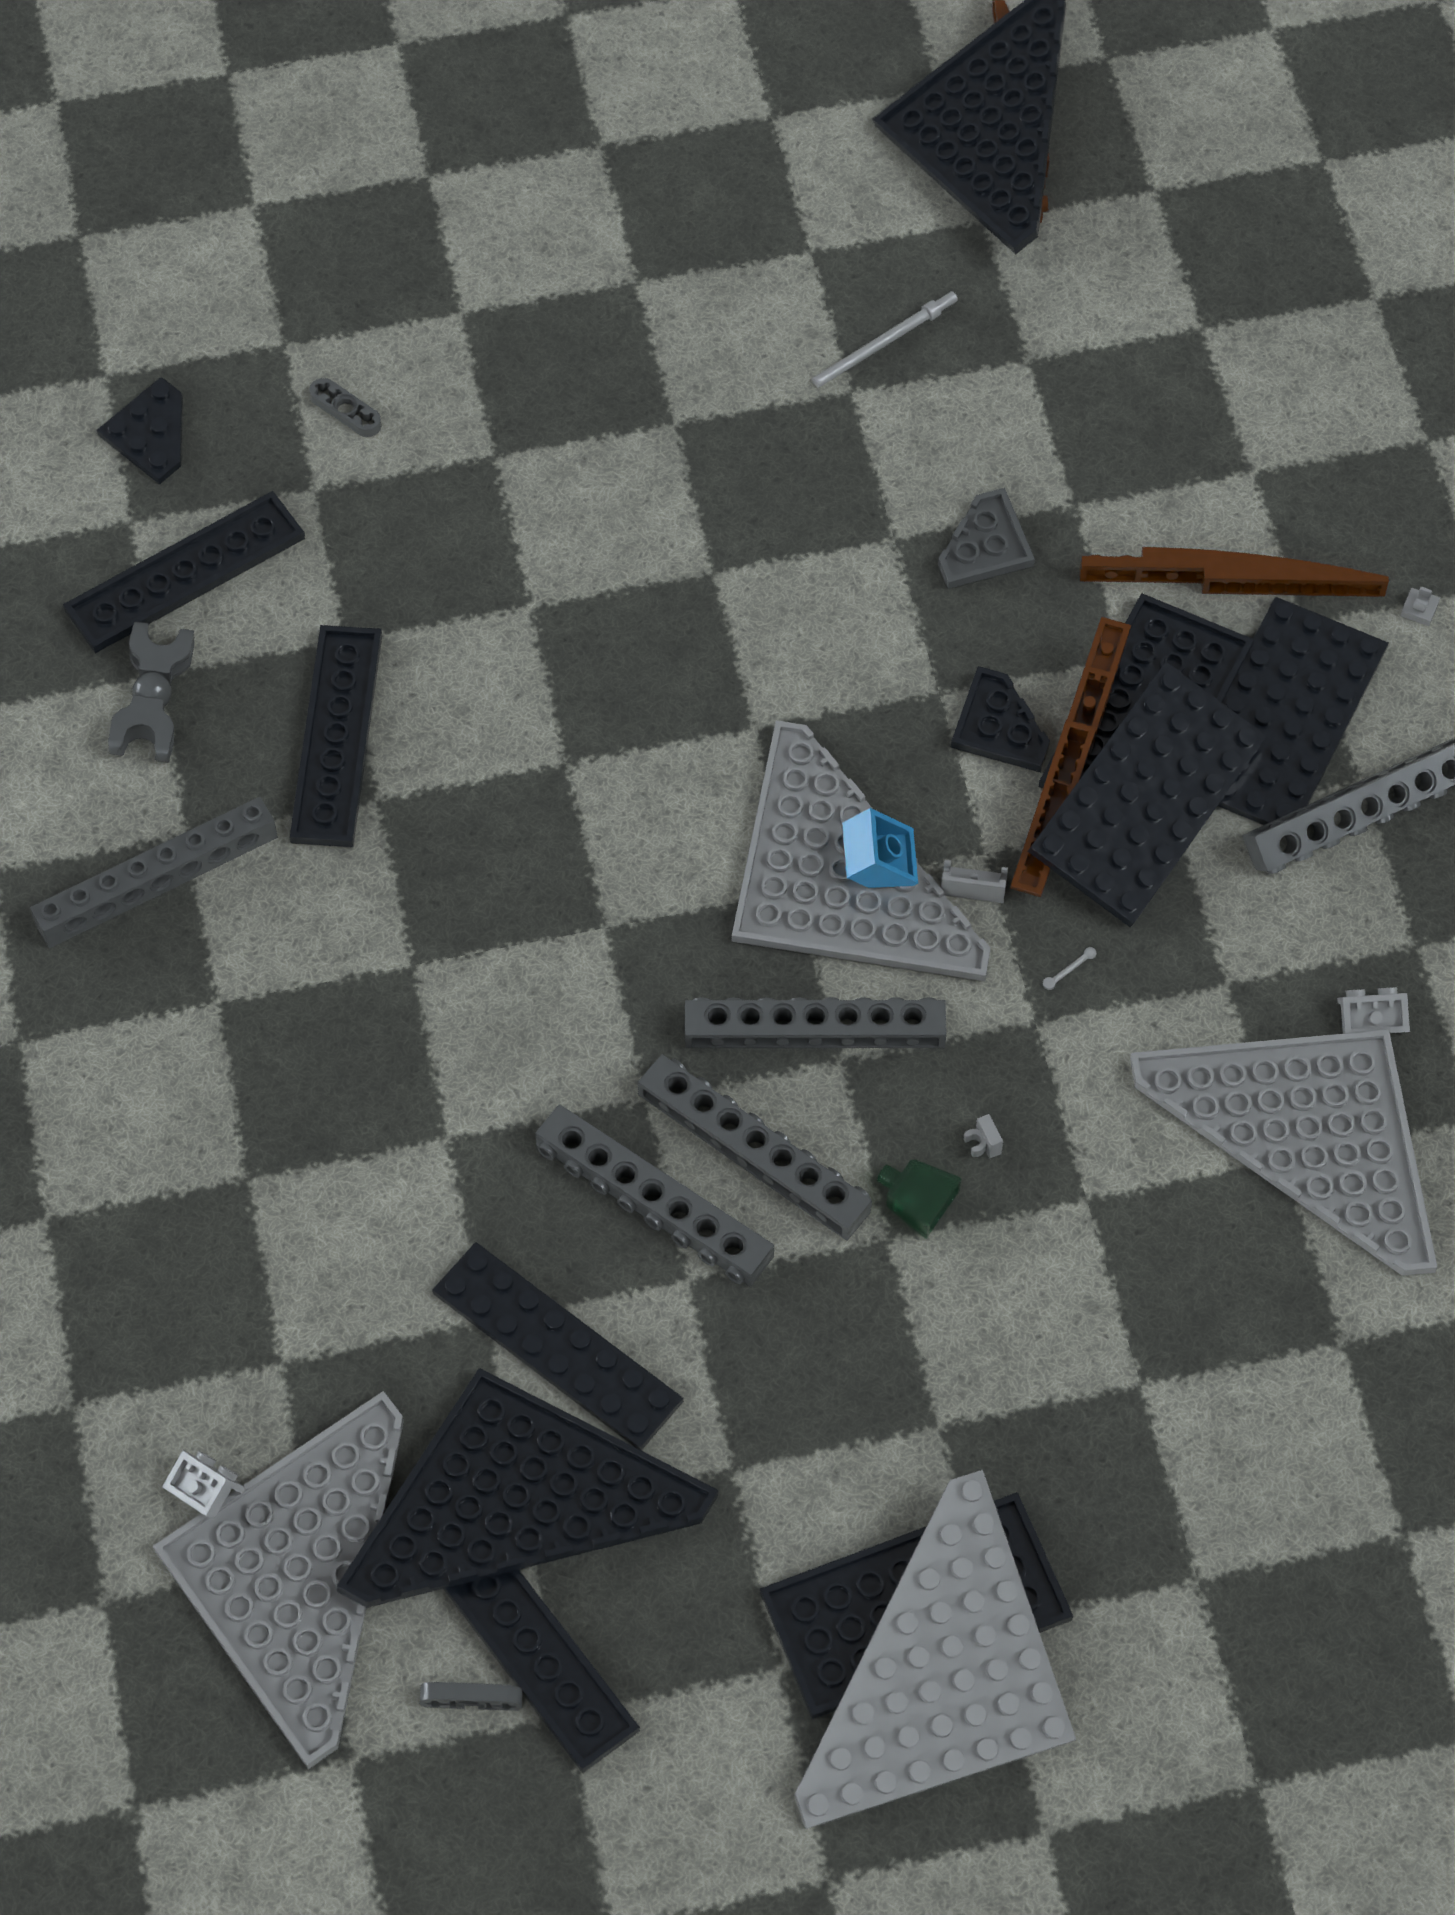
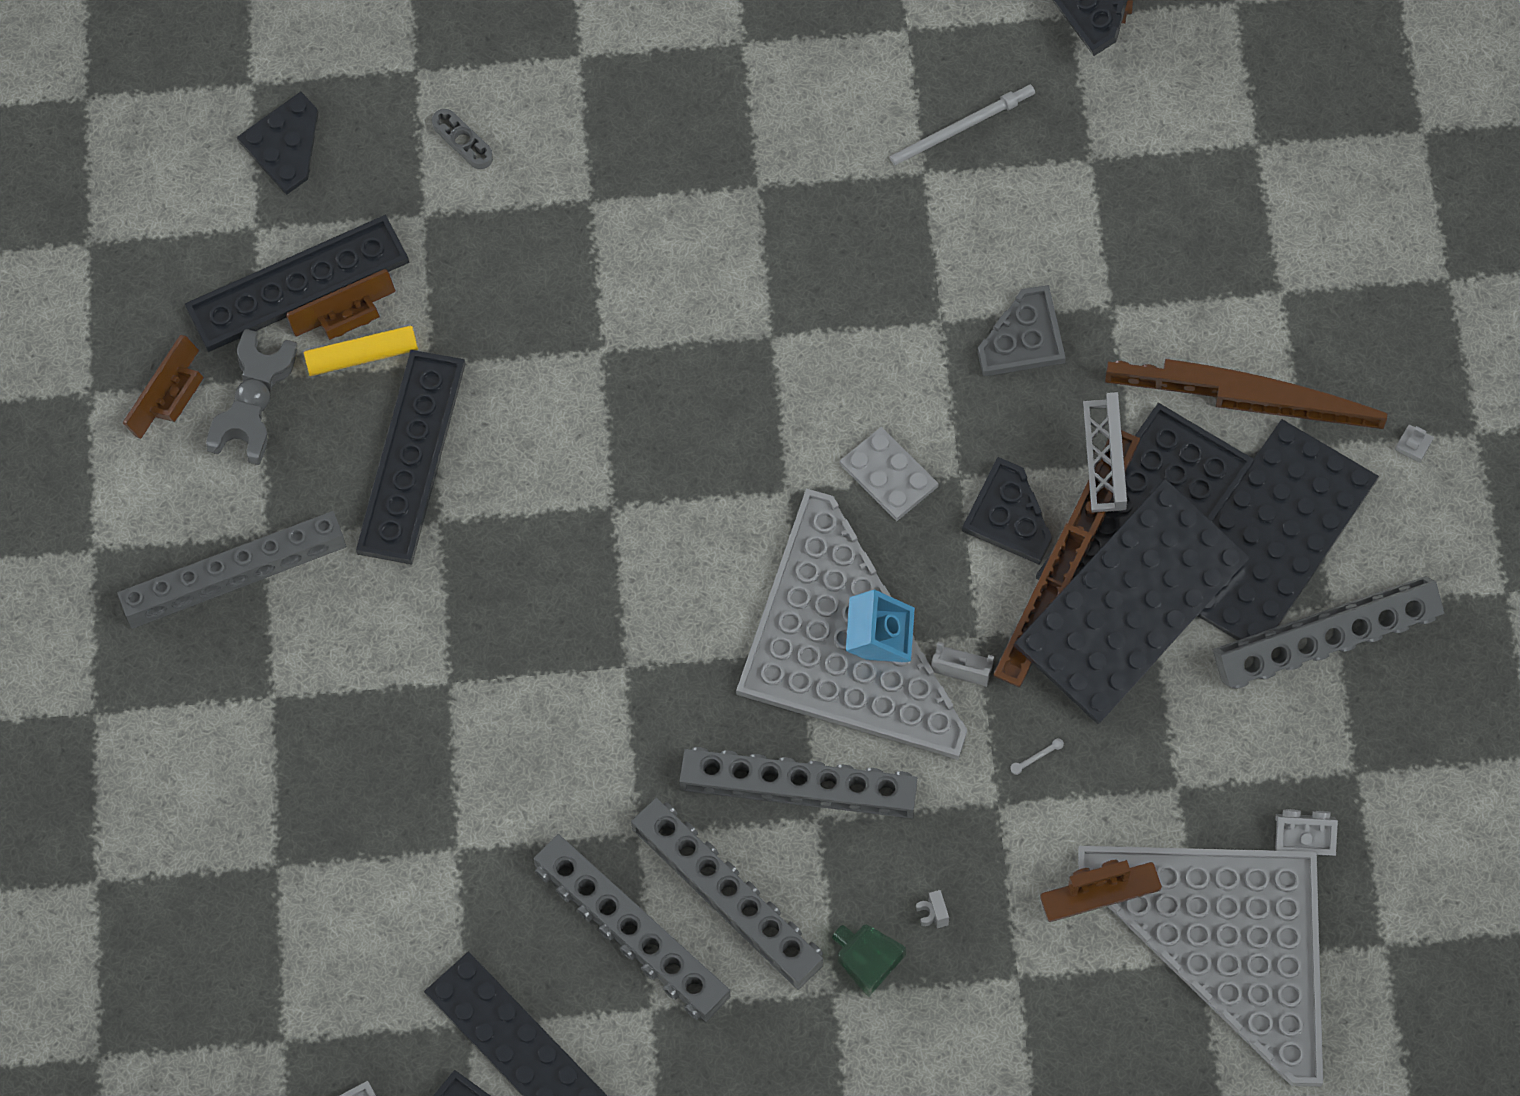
camera: 10 degrees right, 5 degrees up
(55, 695) = (167, 390): none -> reddish brown bracket
(240, 590) = (344, 308): none -> reddish brown bracket
(265, 632) = (360, 350): none -> yellow brick
(862, 697) = (889, 473): none -> light grey plate
(1109, 641) = (1116, 453): none -> light grey fence
(1162, 1091) = (1100, 888): none -> reddish brown bracket

